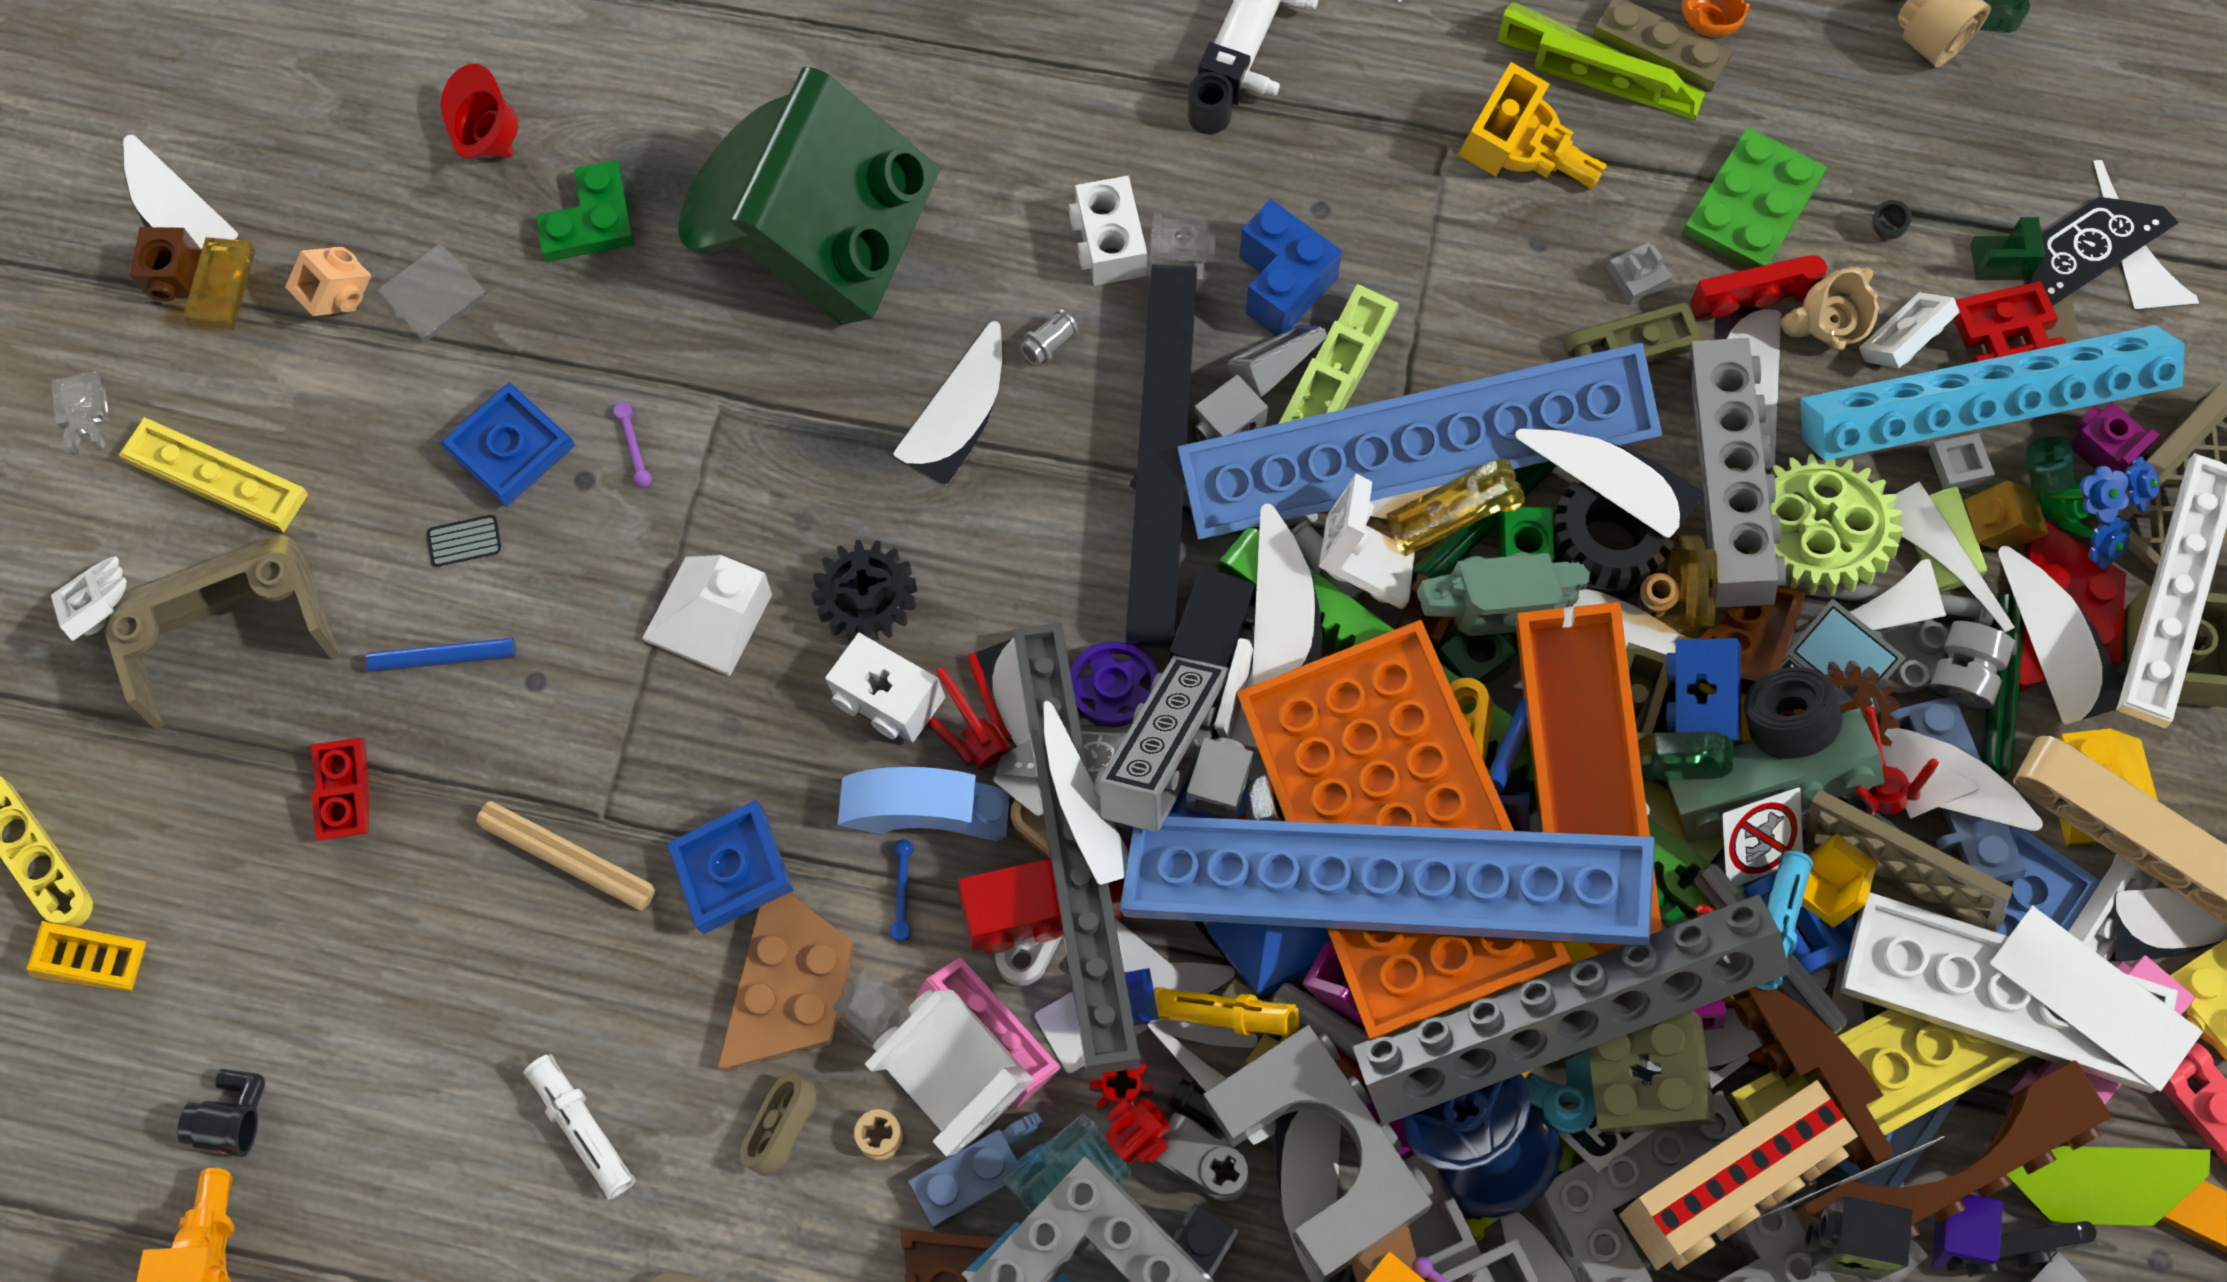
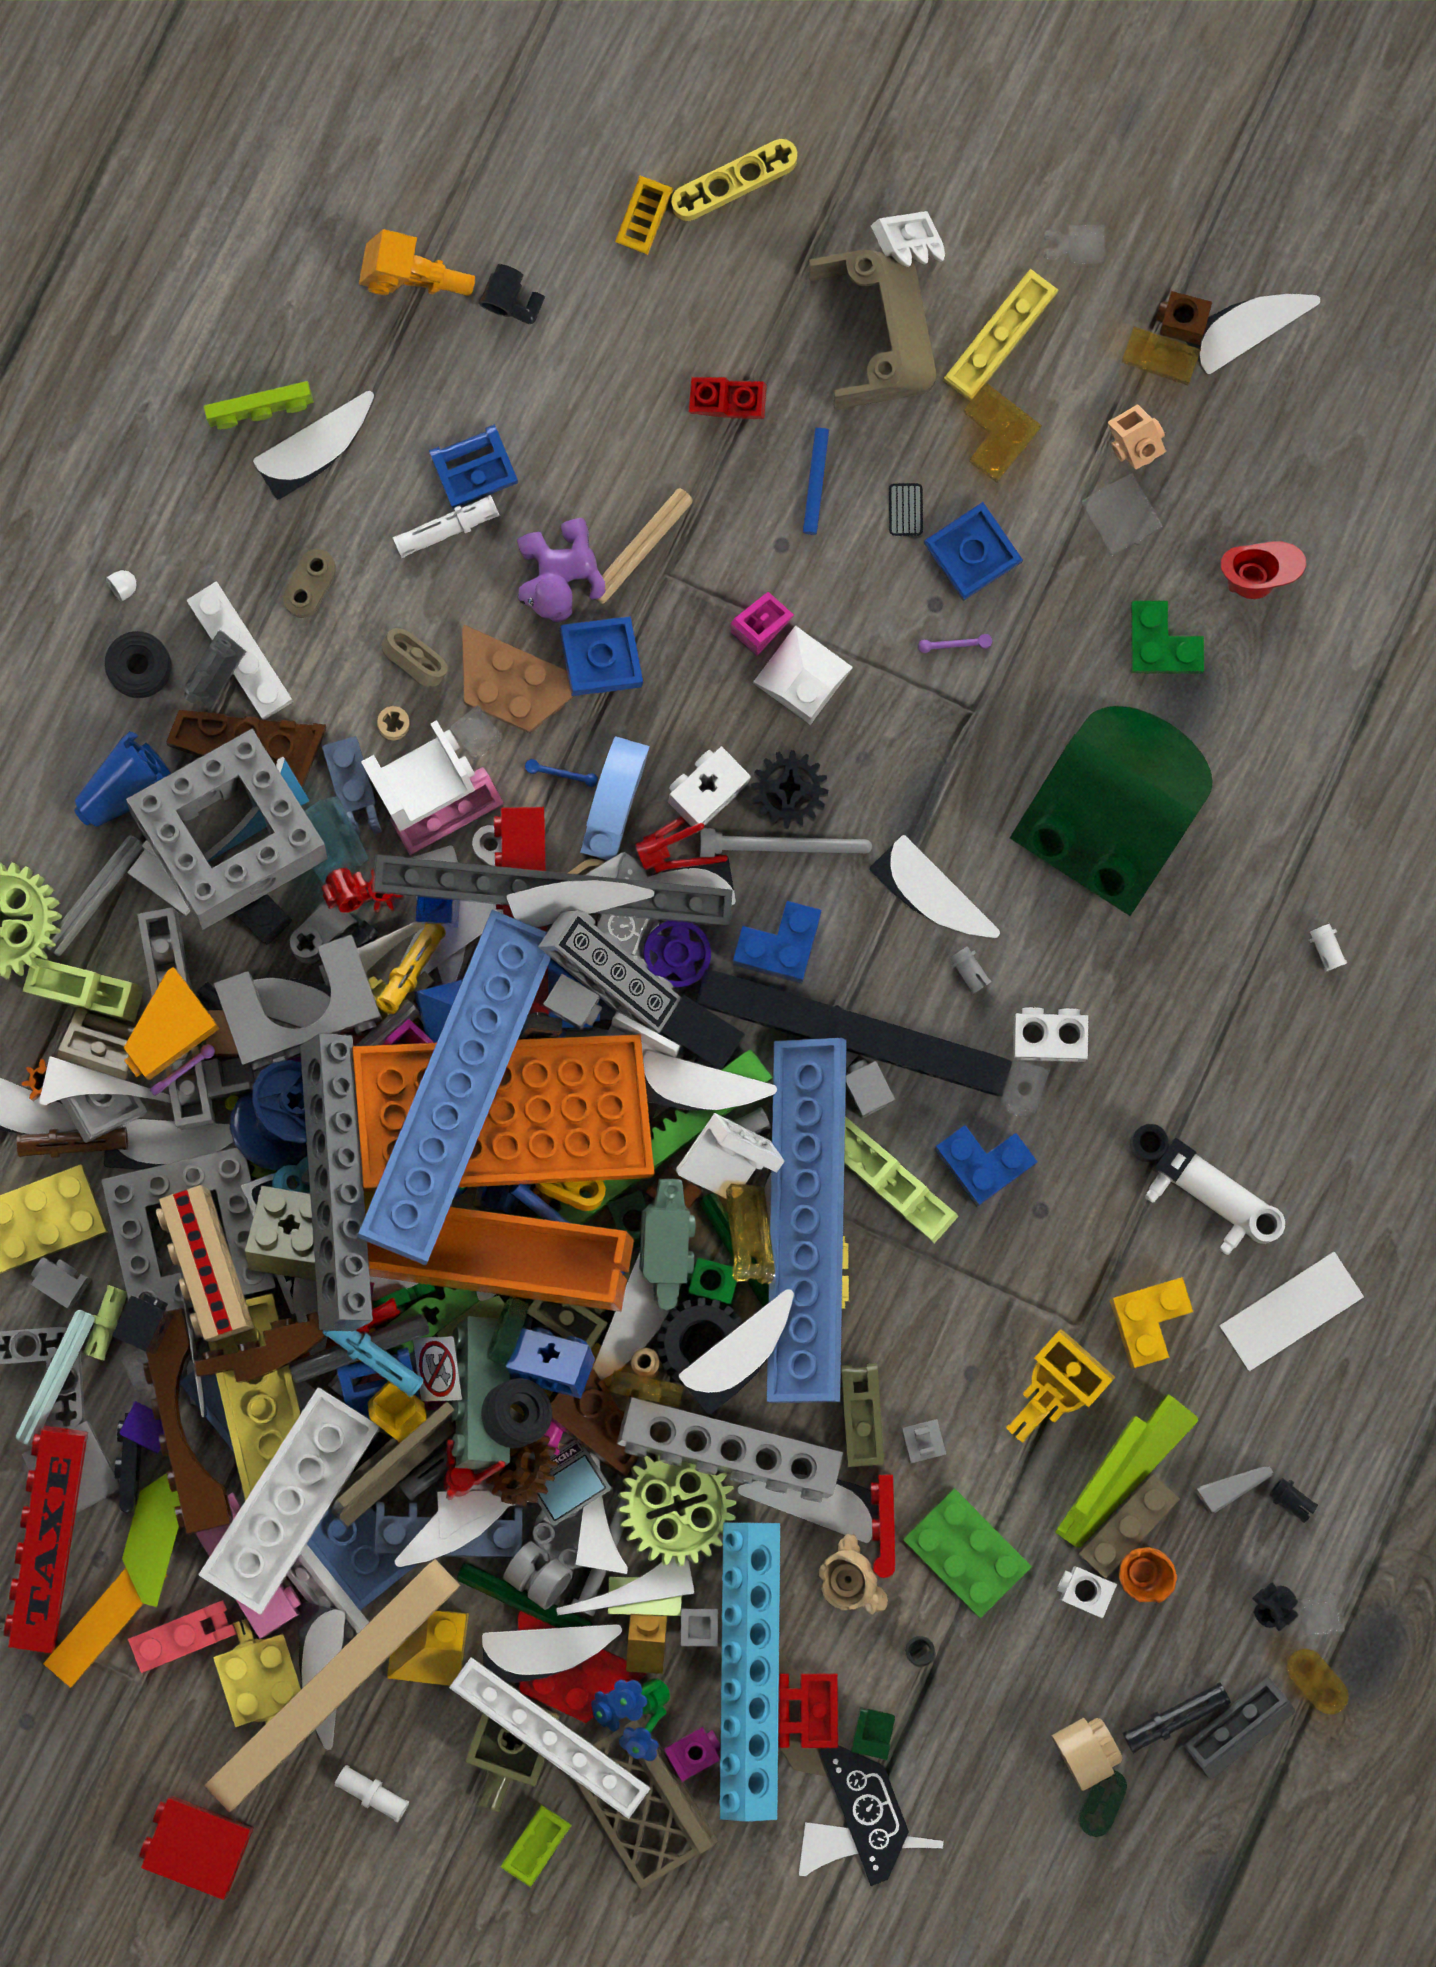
camera: 105 degrees right, 15 degrees up
(341, 434) = (1008, 428): none -> clear yellow plate
(500, 1099) = (478, 476): none -> blue plate
(649, 954) = (549, 592): none -> medium lavender animal
(650, 677) = (760, 623): none -> dark pink slope
(953, 661) = (713, 843): none -> light grey piece
(1069, 544) = (780, 954): none -> blue brick
(1274, 359) = (910, 1136): light grey slope -> none
(1419, 68) = (1140, 1315): none -> yellow brick
(1761, 48) = (1103, 1591): none -> white brick
(1909, 330) = (821, 1630): white plate -> none
(2051, 464) = (682, 1685): clear green beam -> none
(2096, 998) = (268, 1555): white sticker -> none

